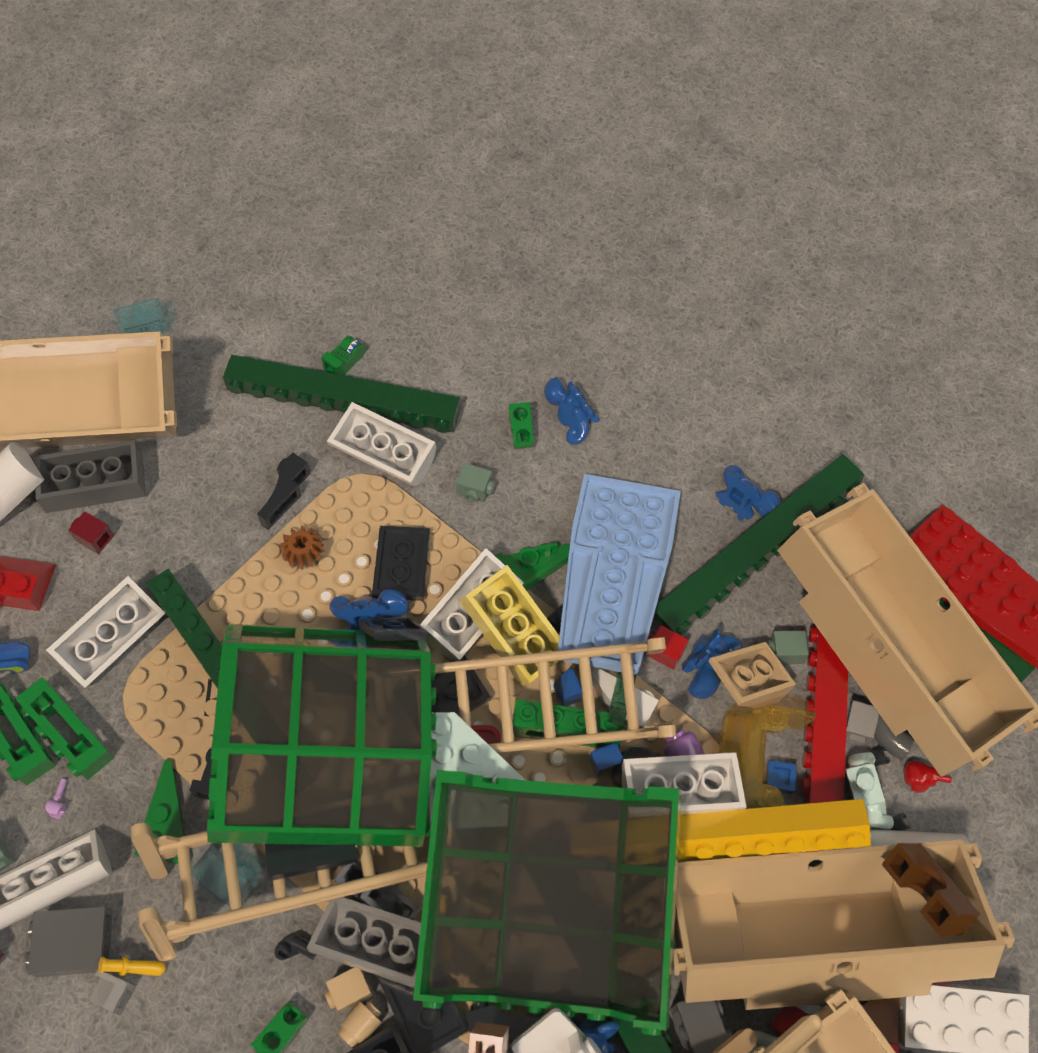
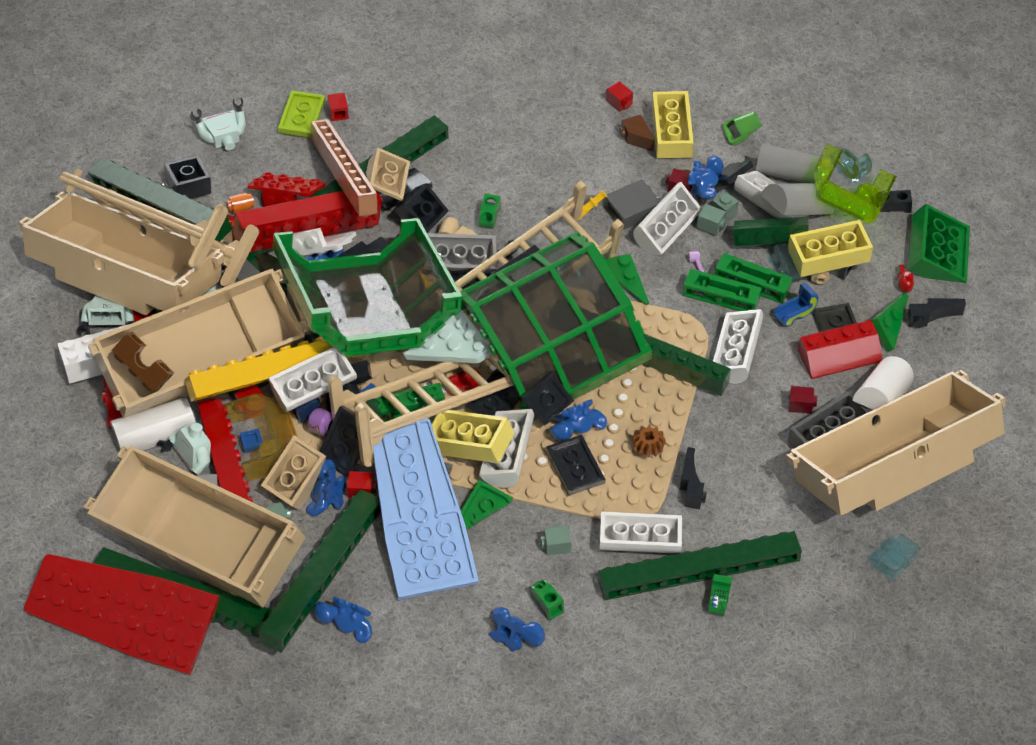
camera: 155 degrees right, 10 degrees down
(667, 698) = (342, 441): none -> black tile

